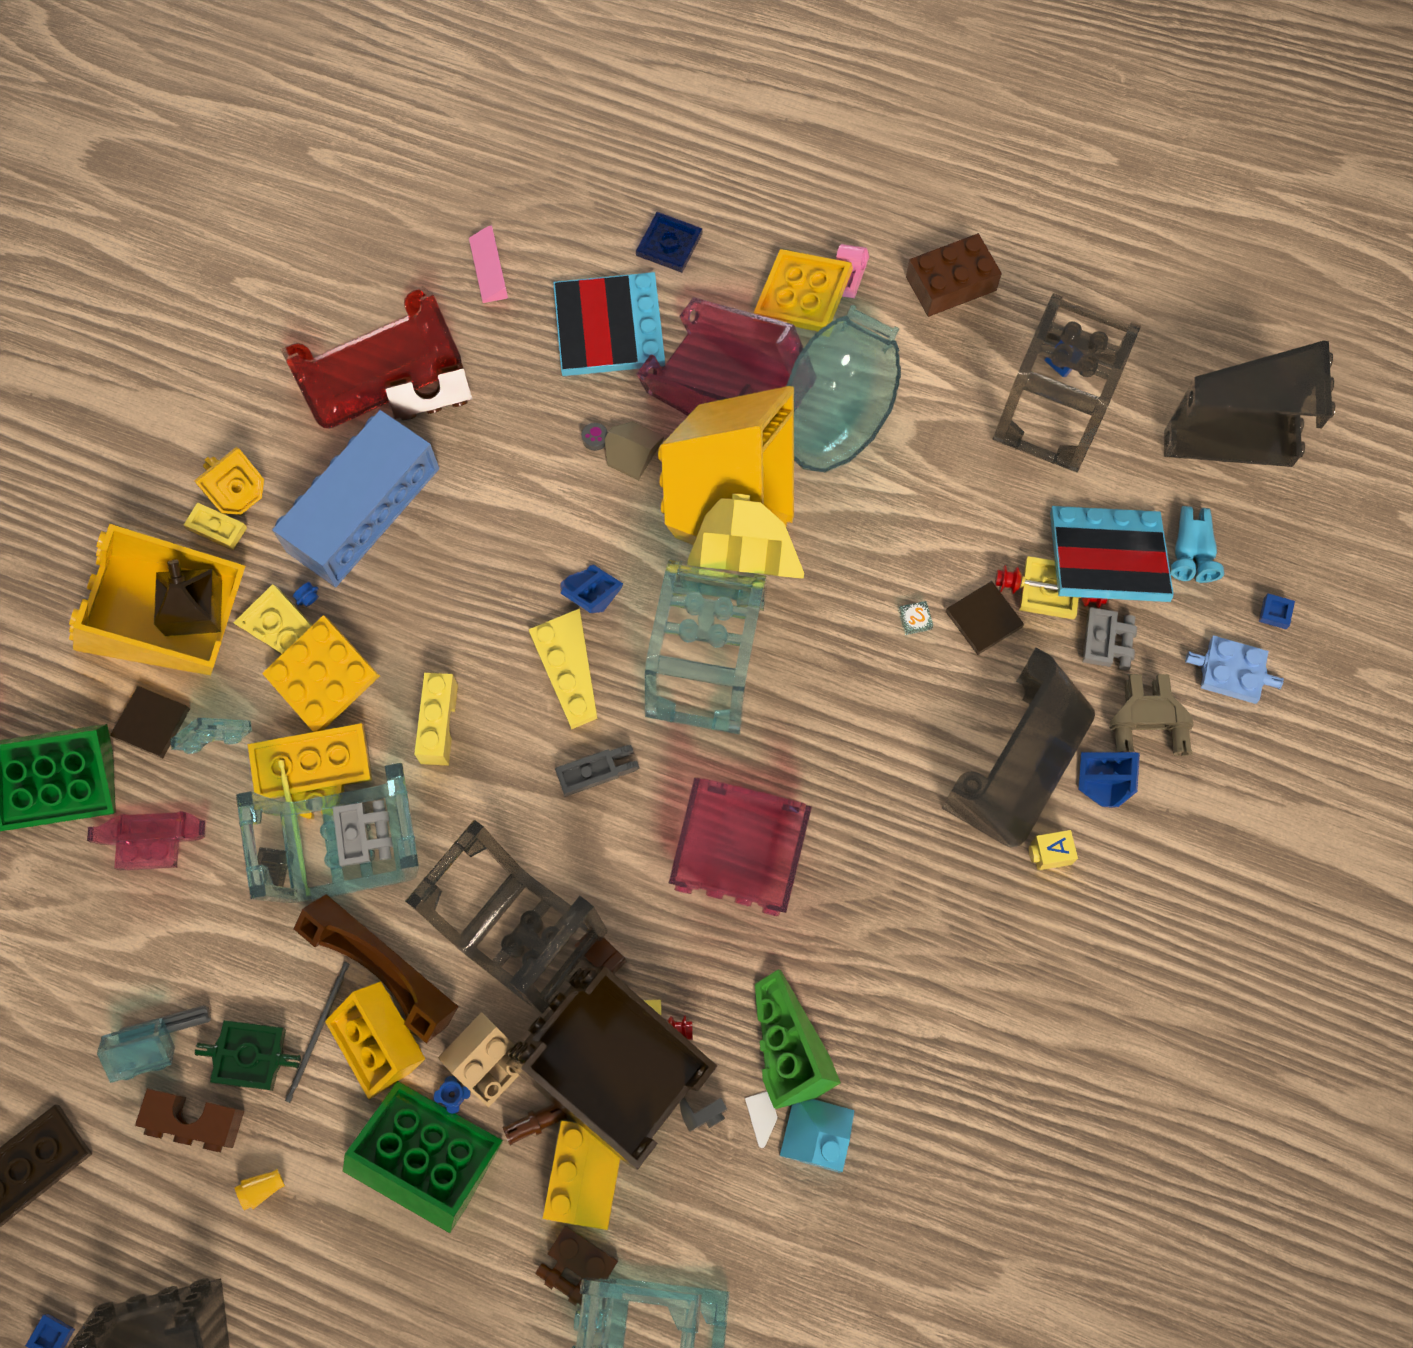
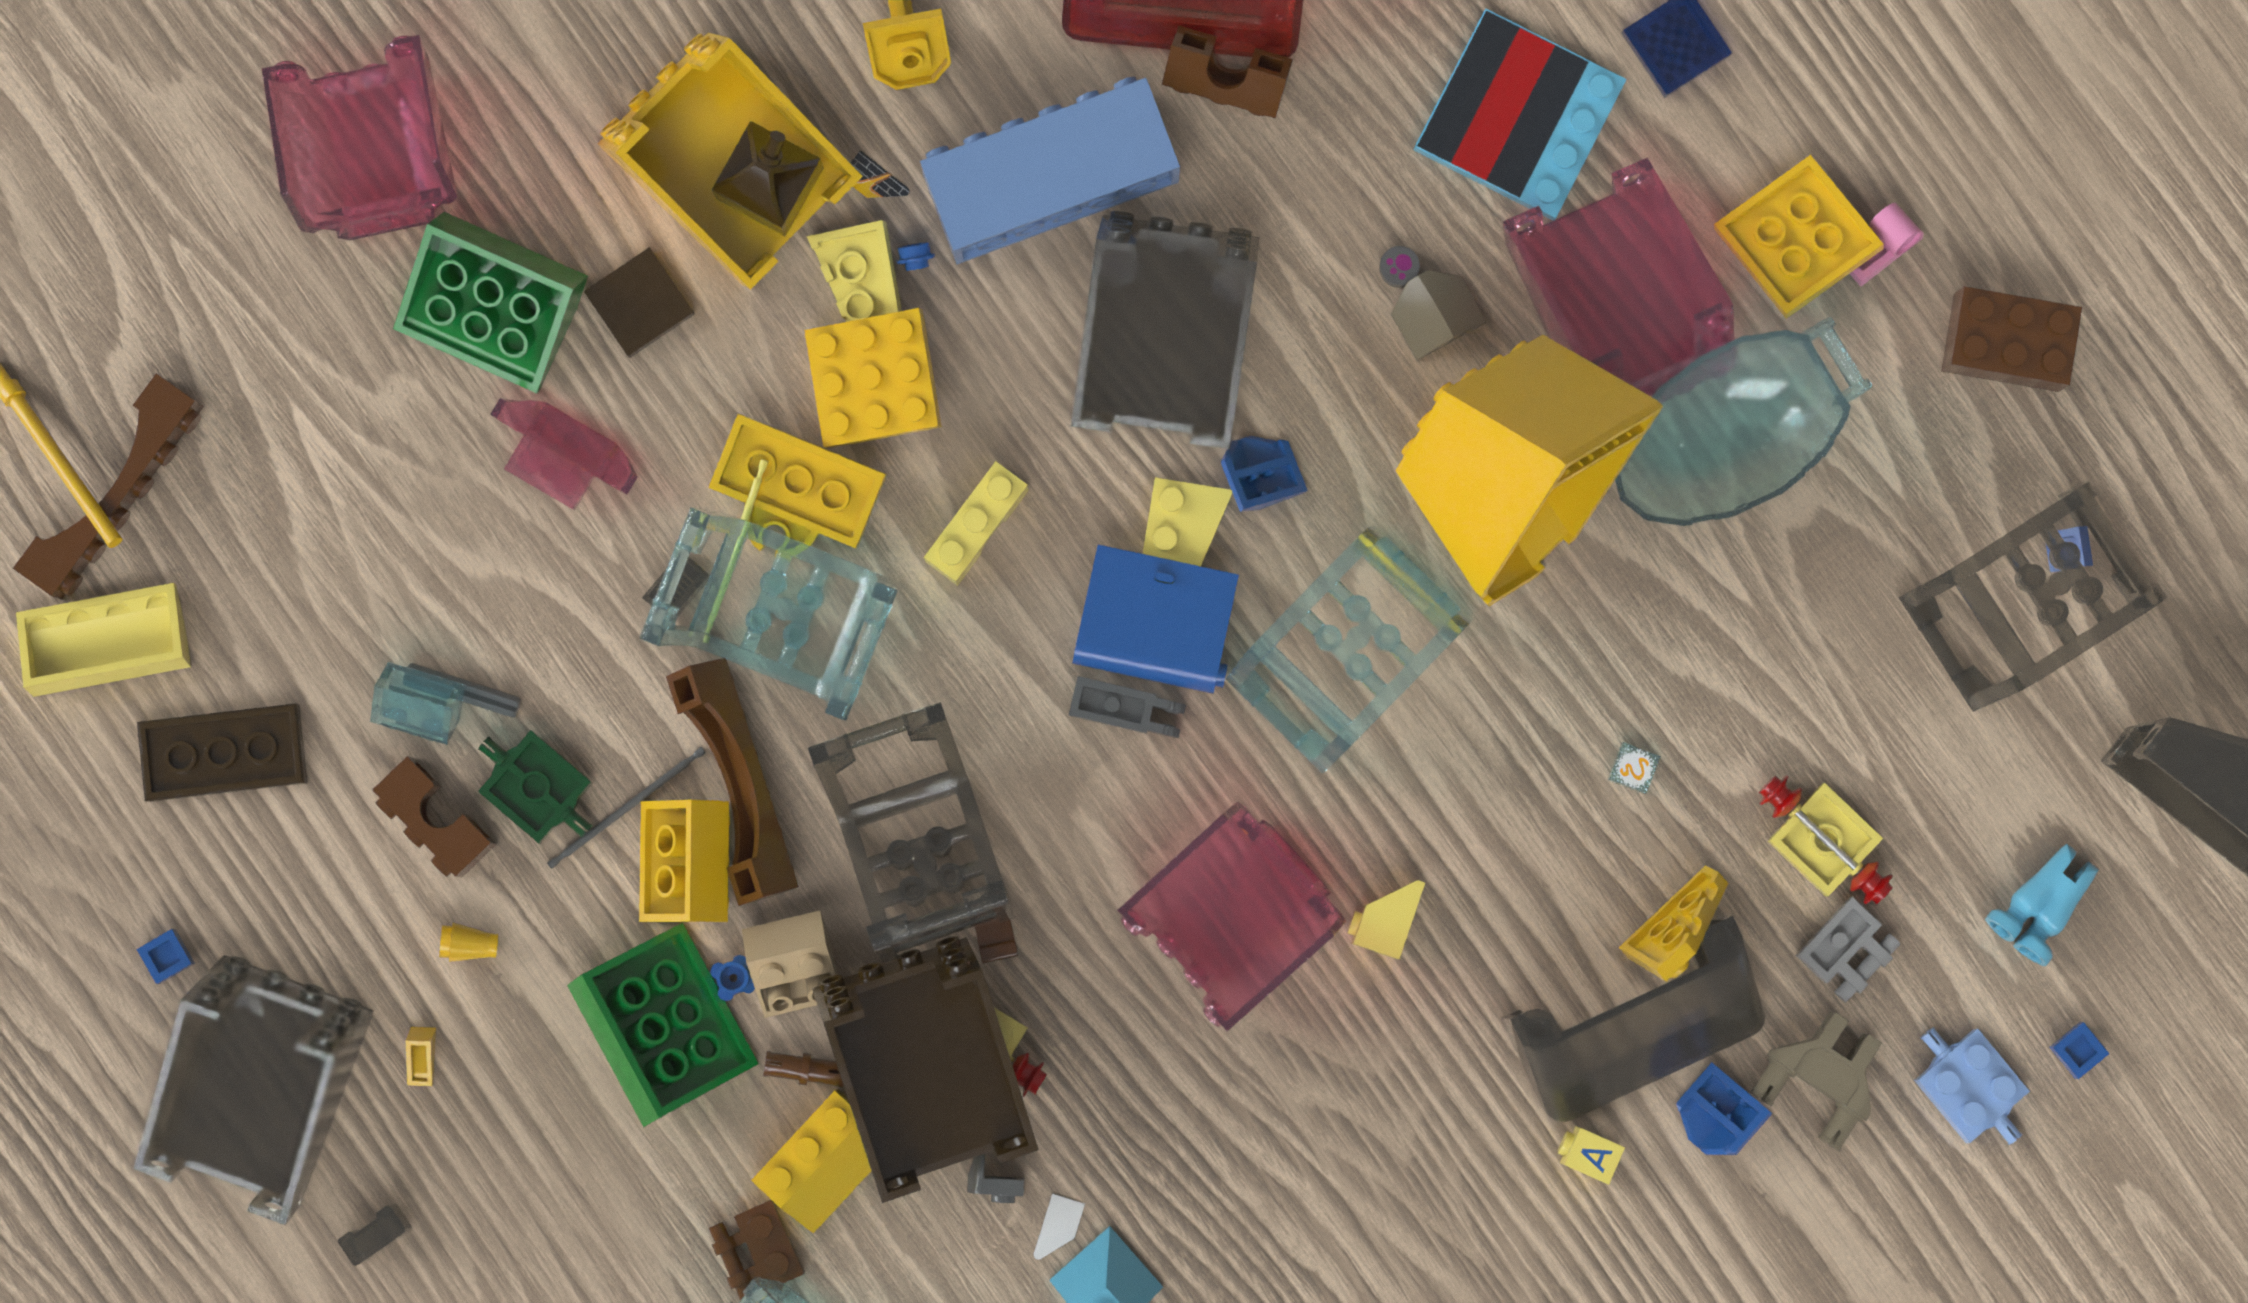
camera: 30 degrees right, 15 degrees up
(206, 730) = (699, 371): clear light blue plate -> none
(215, 526) = (856, 88): light yellow plate -> none
(258, 571) = (876, 180): none -> sticker
(270, 1288) = (420, 1056): none -> yellow piece
(353, 836) = (796, 609): light grey plate -> none
(482, 543) = (1165, 327): none -> clear smoke windscreen
(583, 711) = (1154, 626): none -> blue door
(745, 539) = (1467, 570): light yellow brick -> none
(794, 1055) = (1137, 1183): bright green wedge -> none
(836, 792) = (1386, 921): none -> light yellow slope
(984, 617) = (1718, 823): dark brown tile -> none
(1007, 683) = (1678, 927): none -> yellow plate
(1110, 554) = (1927, 847): plate -> none

